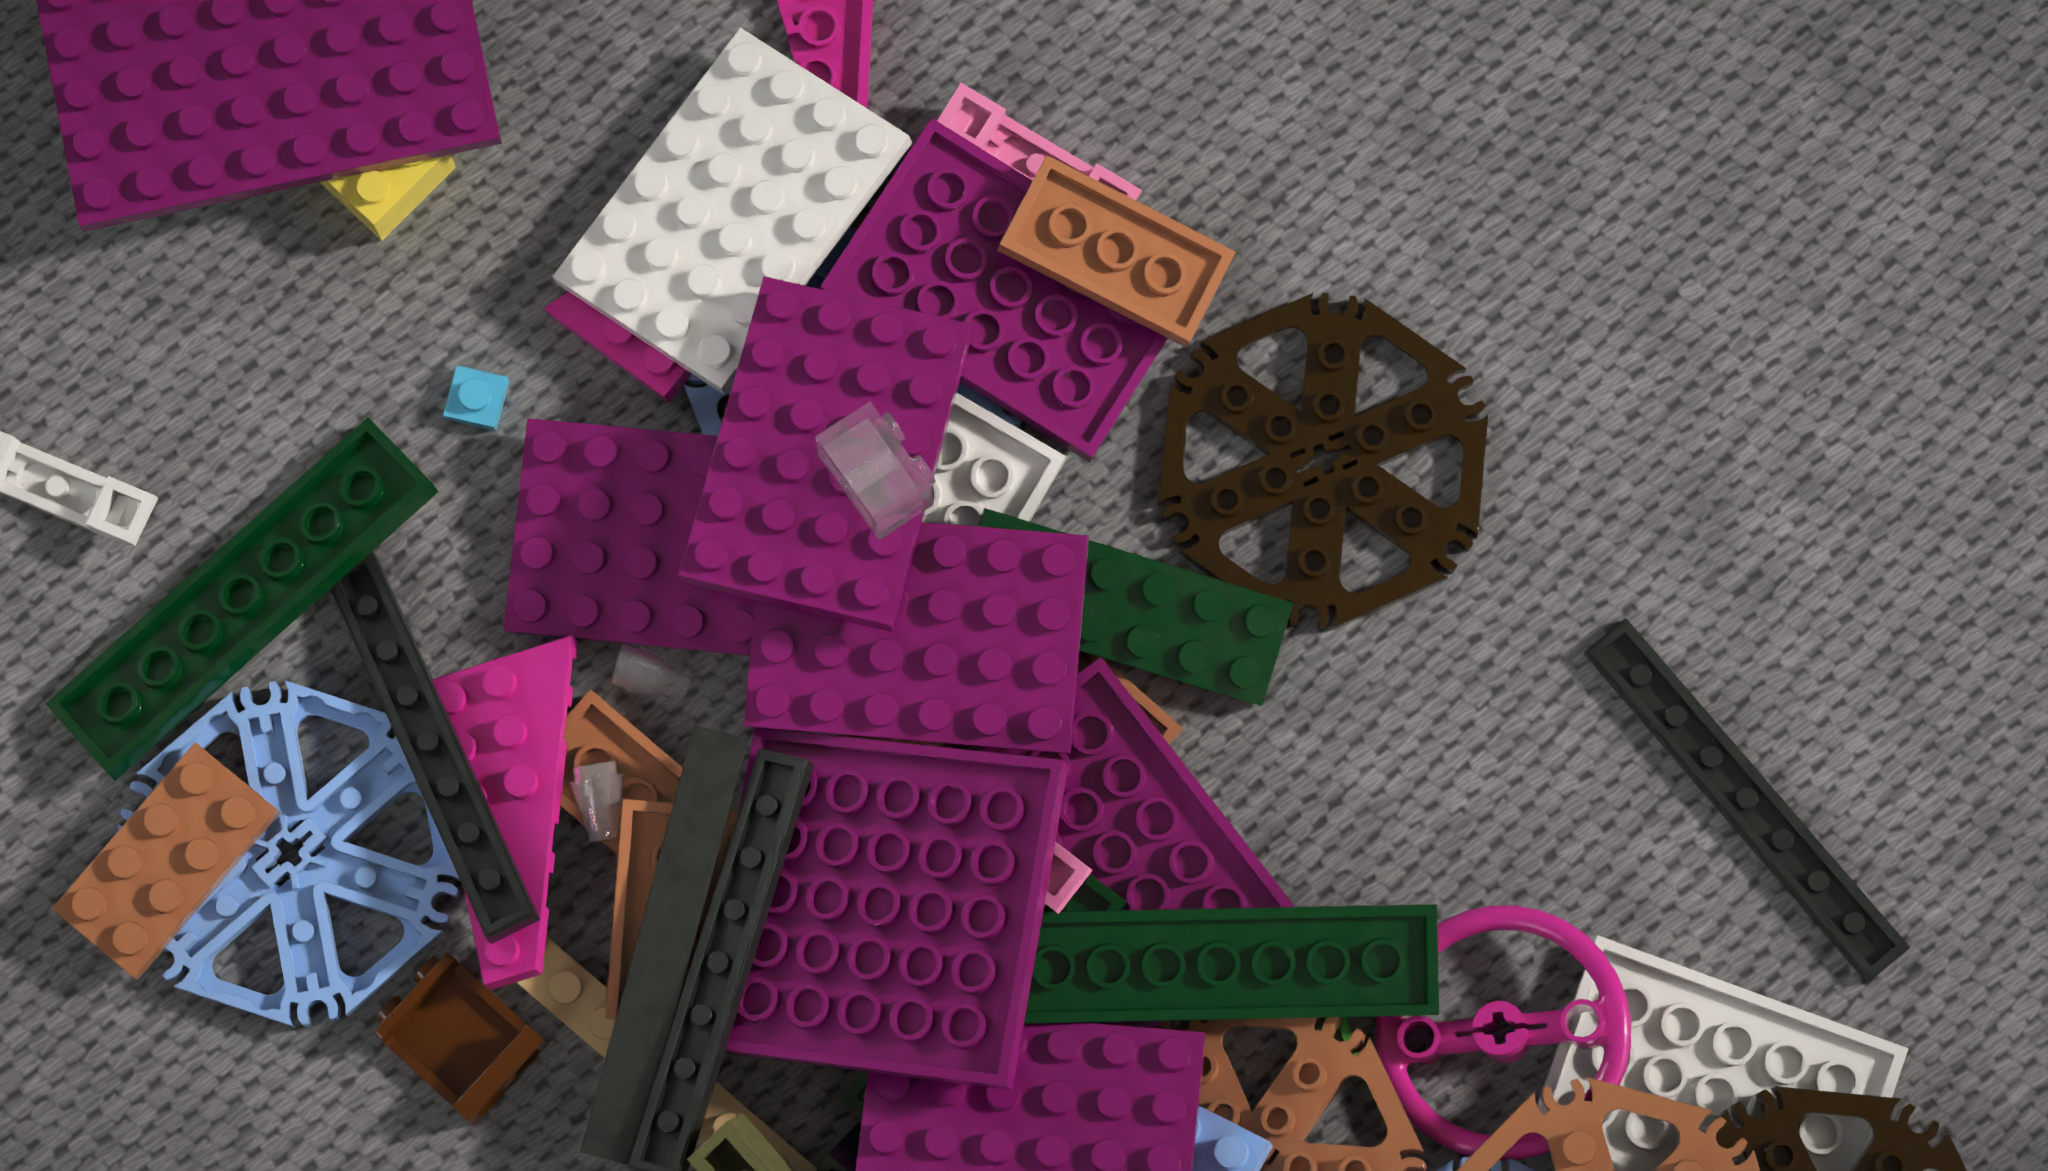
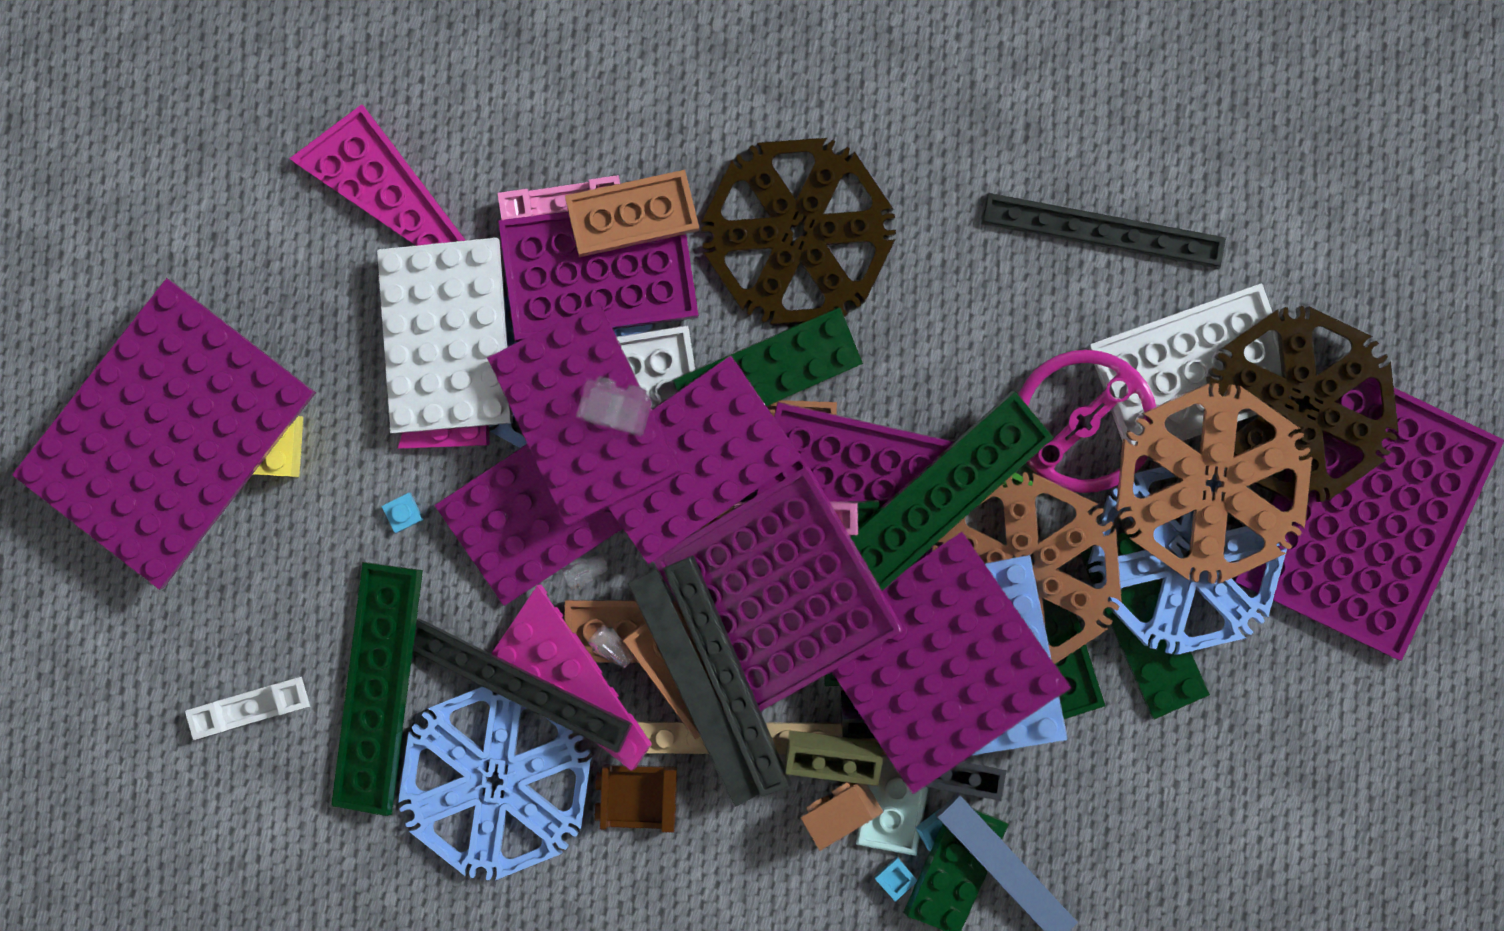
camera: 45 degrees left, 10 degrees up
(166, 861) = (444, 831): nougat plate -> none

